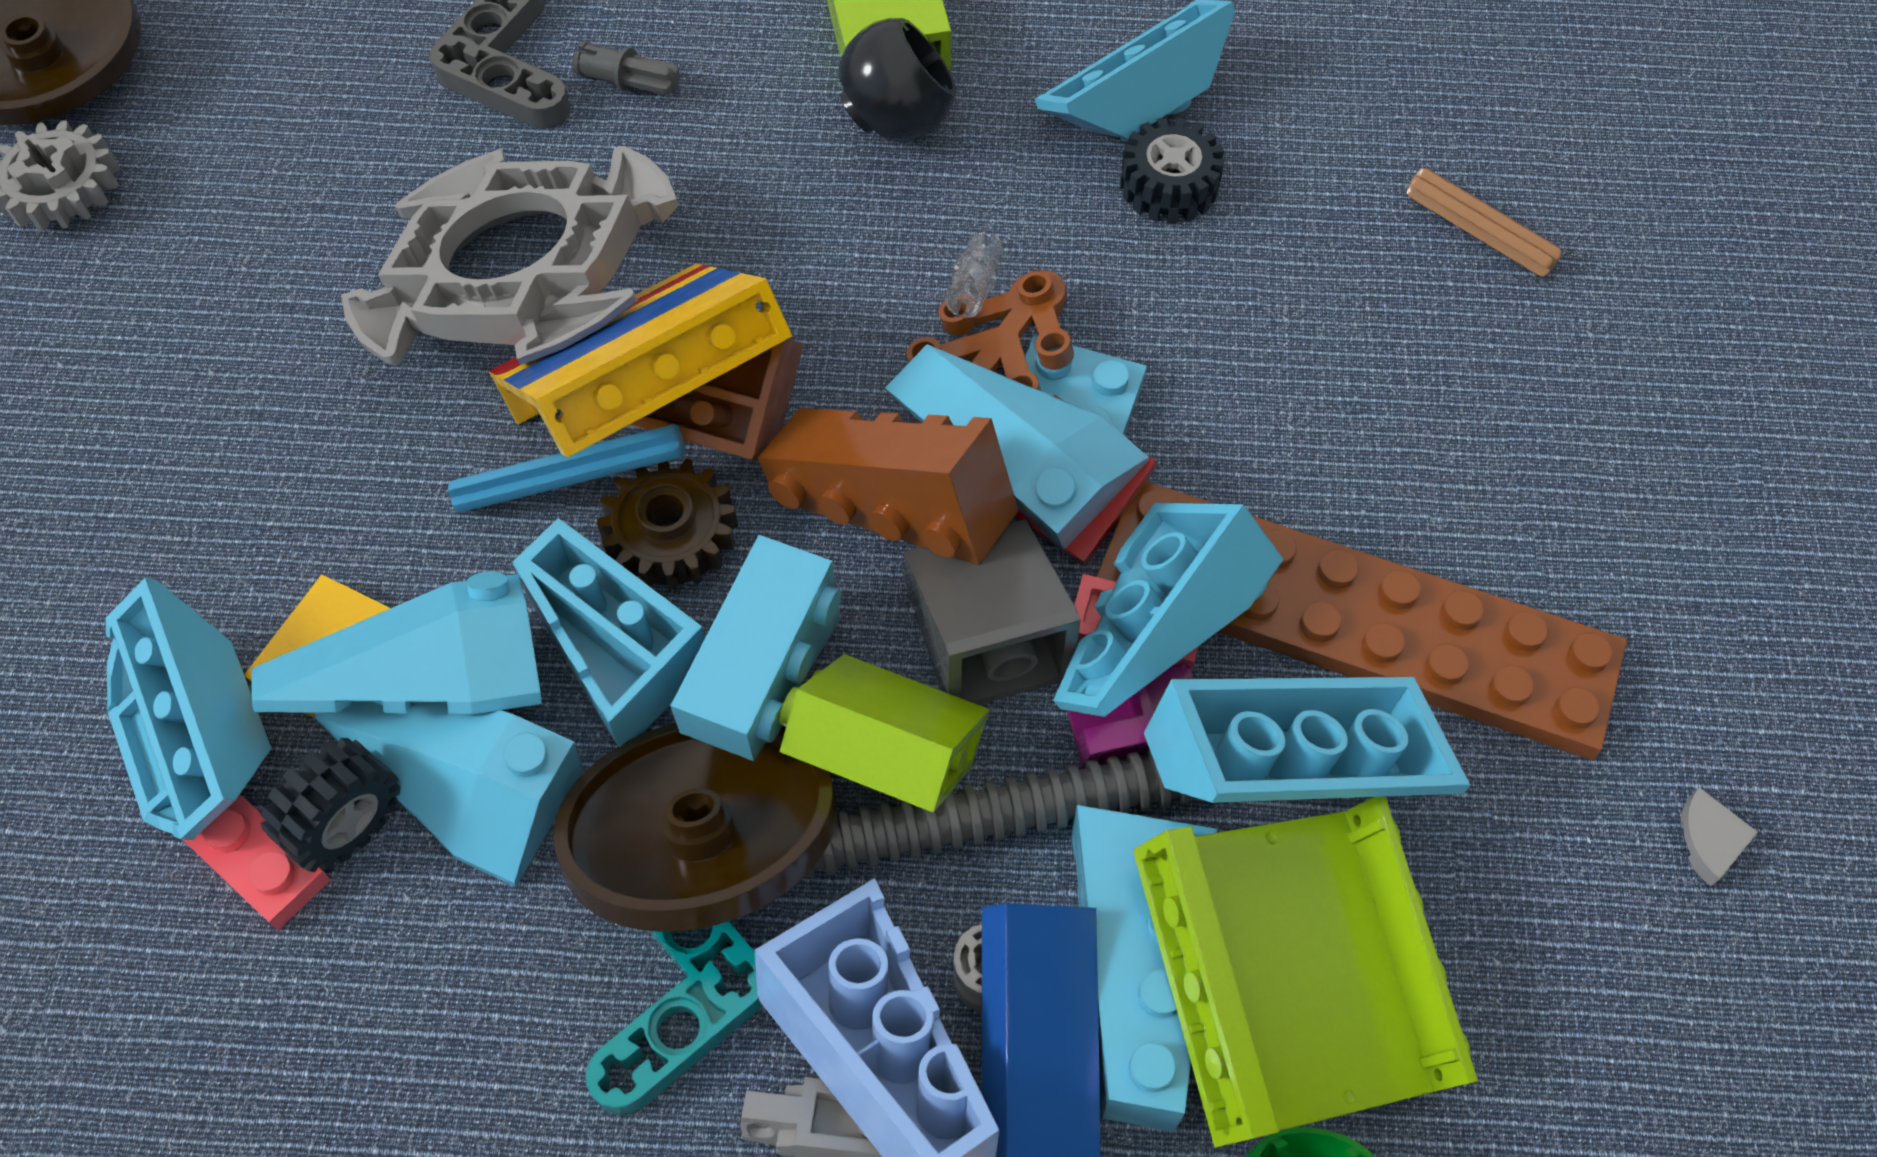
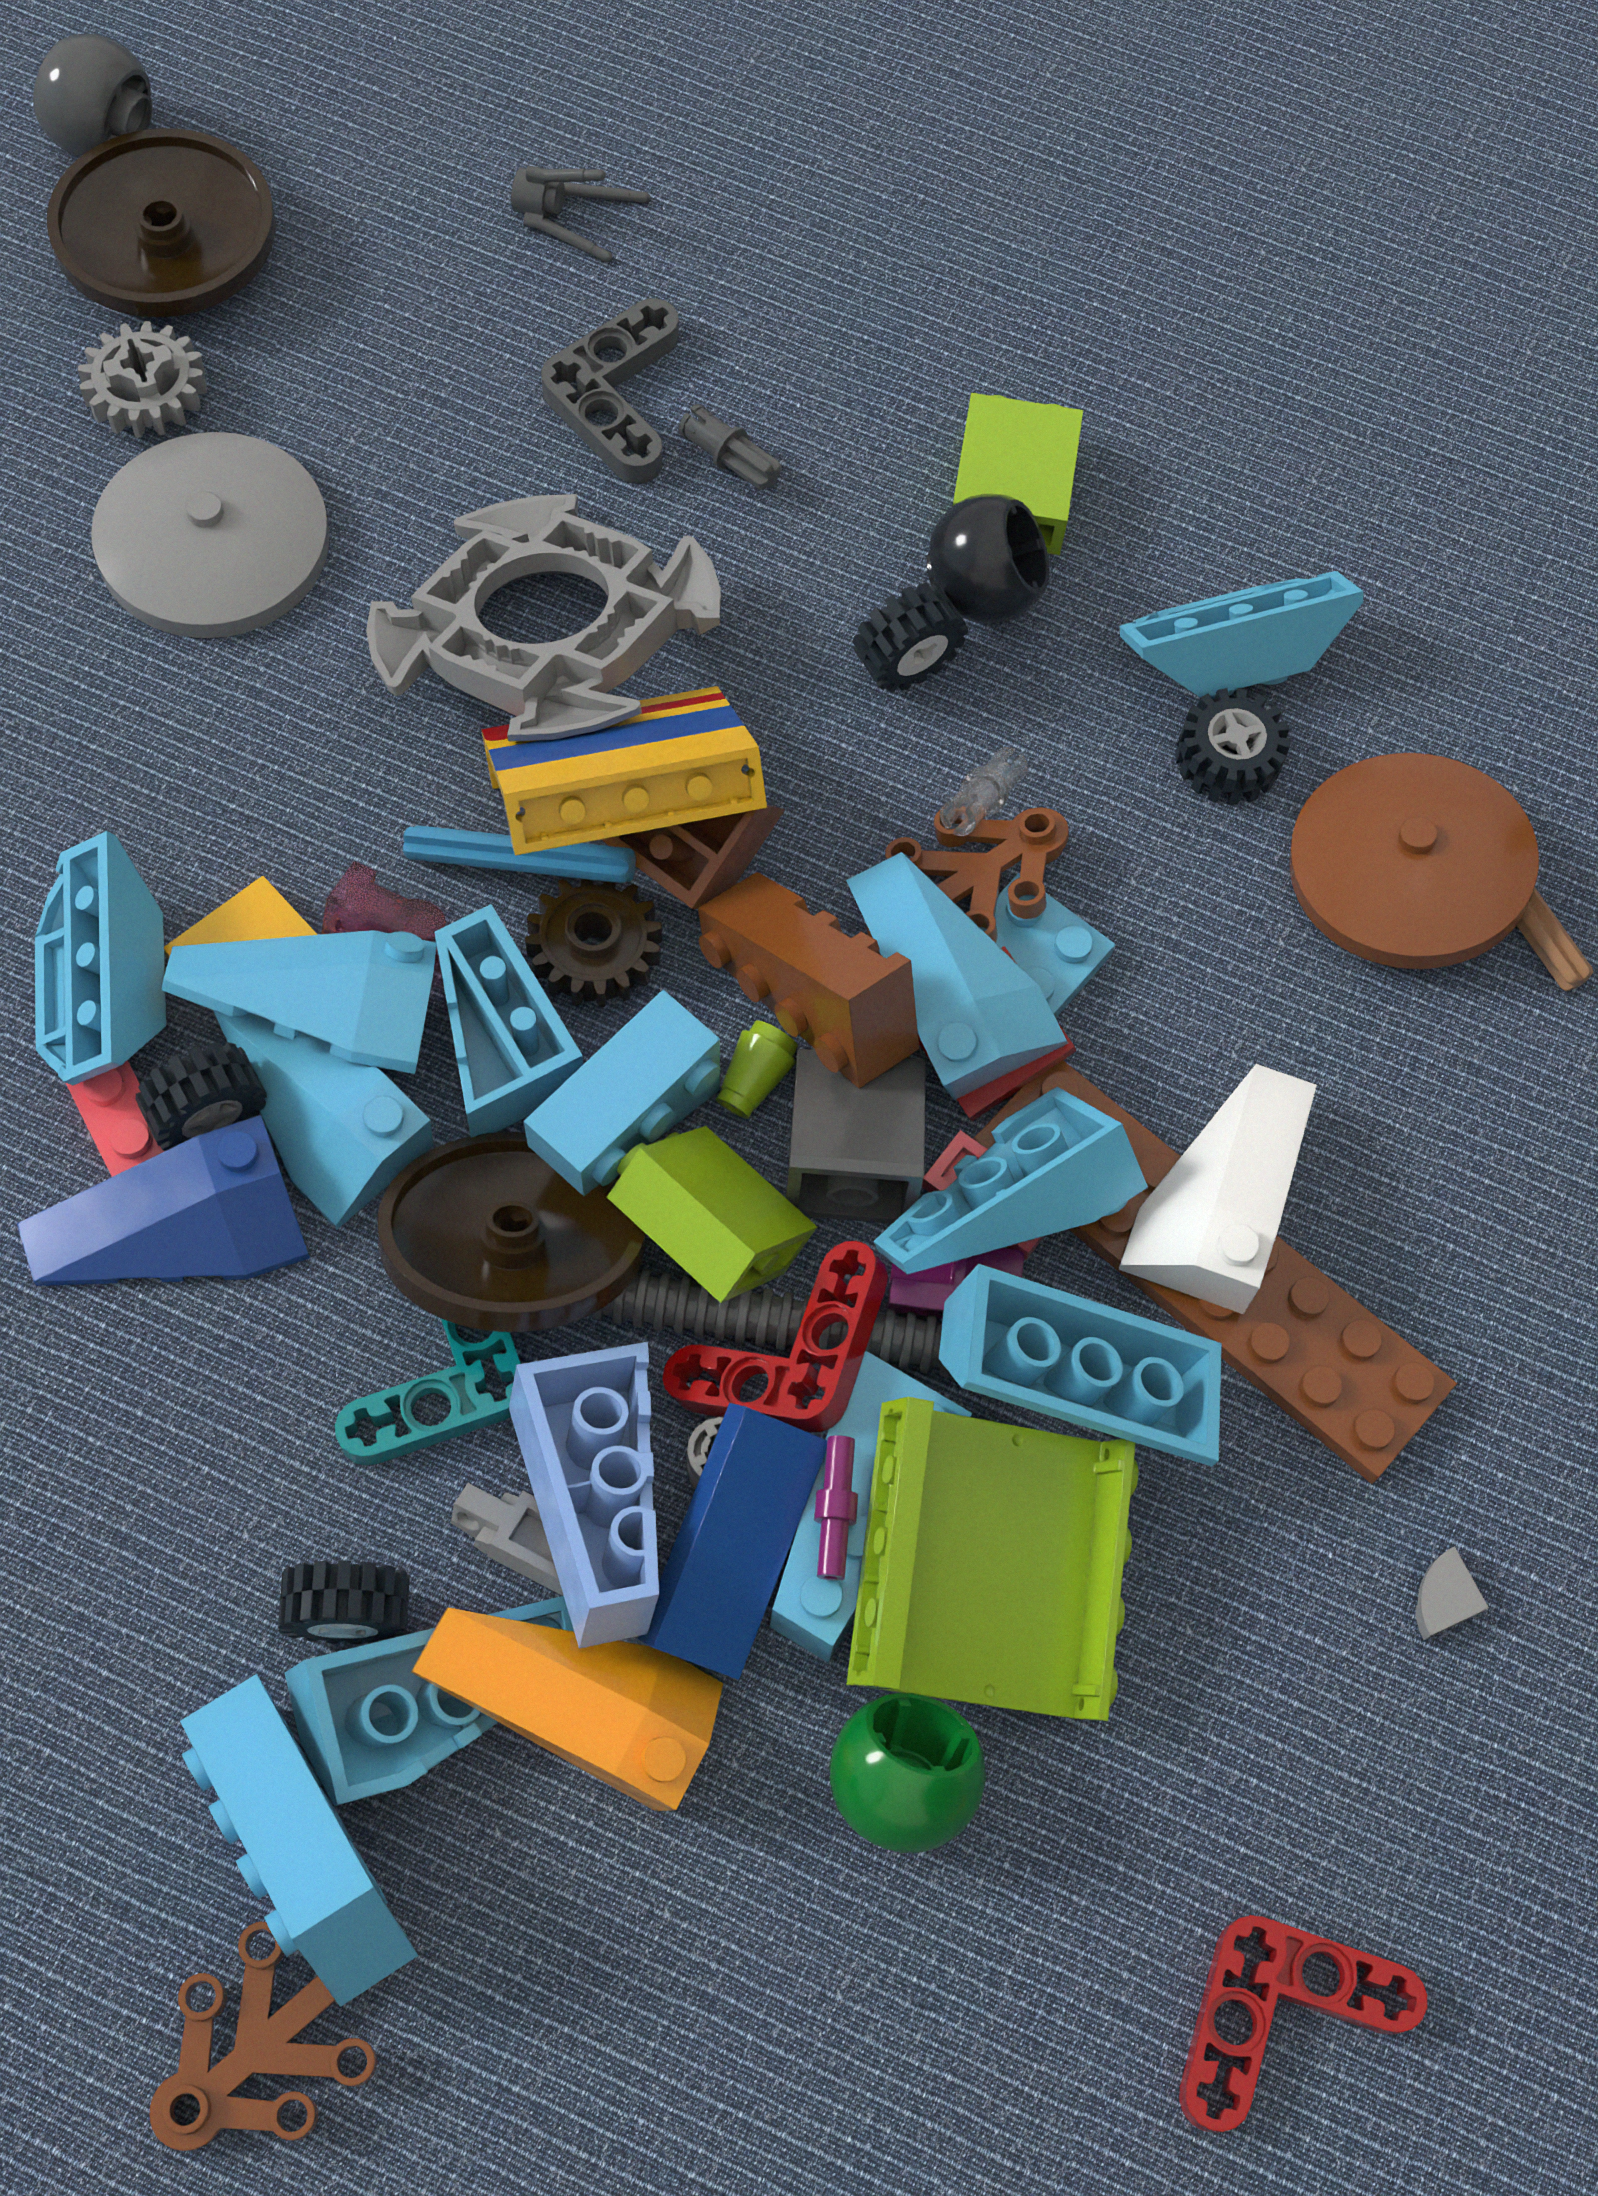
camera: 15 degrees right, 5 degrees up
(164, 291) = (210, 535): none -> light grey dish
(355, 924) = (185, 1213): none -> blue wedge
(430, 564) = (364, 906): none -> clear pink leg
(853, 166) = (910, 637): none -> black wheel
(868, 585) = (756, 1067): none -> lime cone
(1034, 856) = (794, 1376): none -> red beam
(1132, 971) = (836, 1508): none -> magenta bar
(1354, 548) = (1224, 1198): none -> white wedge
(1369, 212) = (1413, 860): none -> dark orange dish

